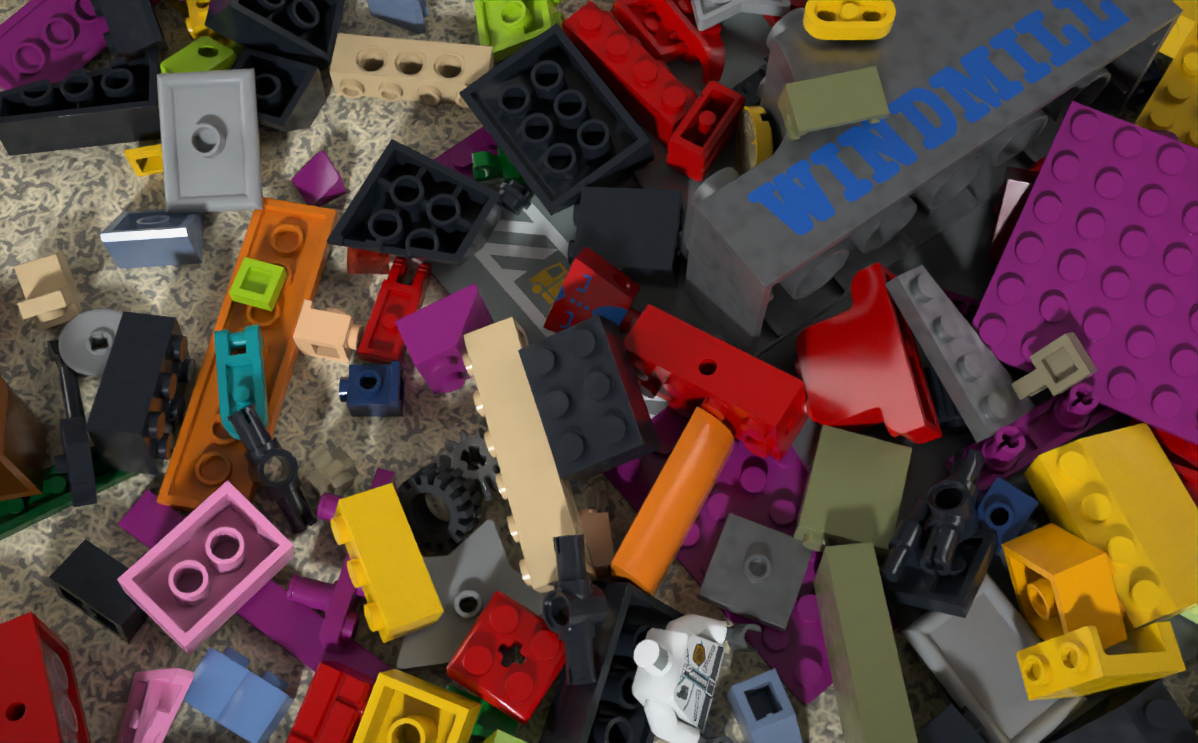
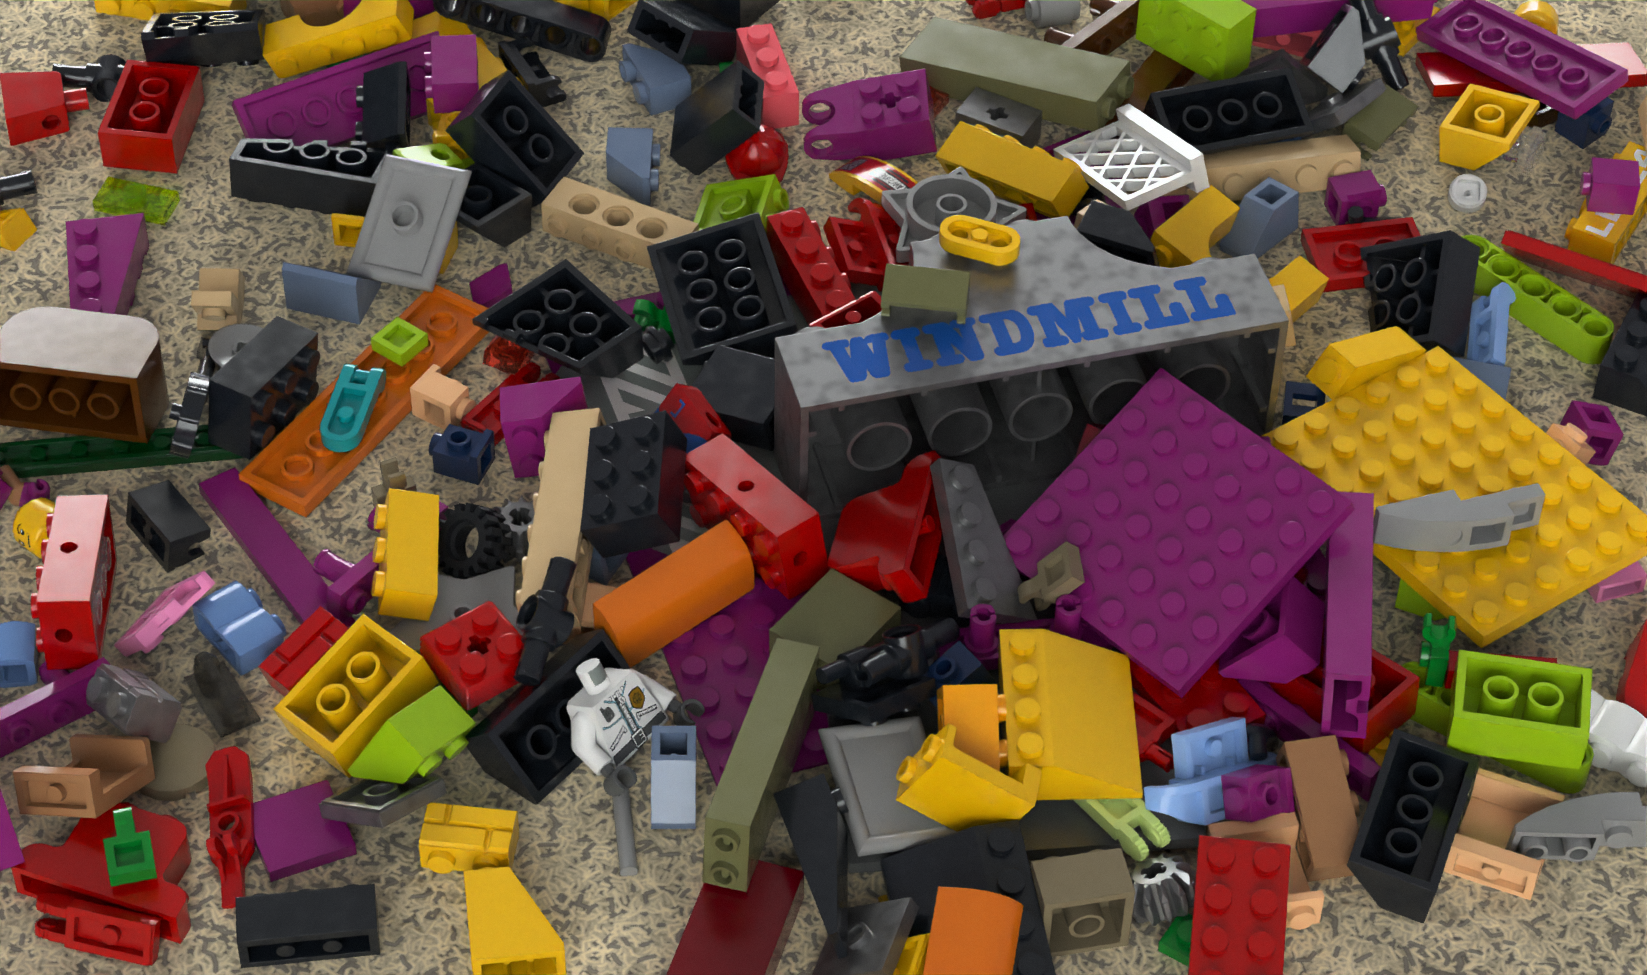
camera: 20 degrees right, 20 degrees down
(207, 567) = (260, 518): bright pink brick -> none
(260, 448) = (346, 454): black pin -> none
(755, 572) = (719, 674): flat silver plate -> none

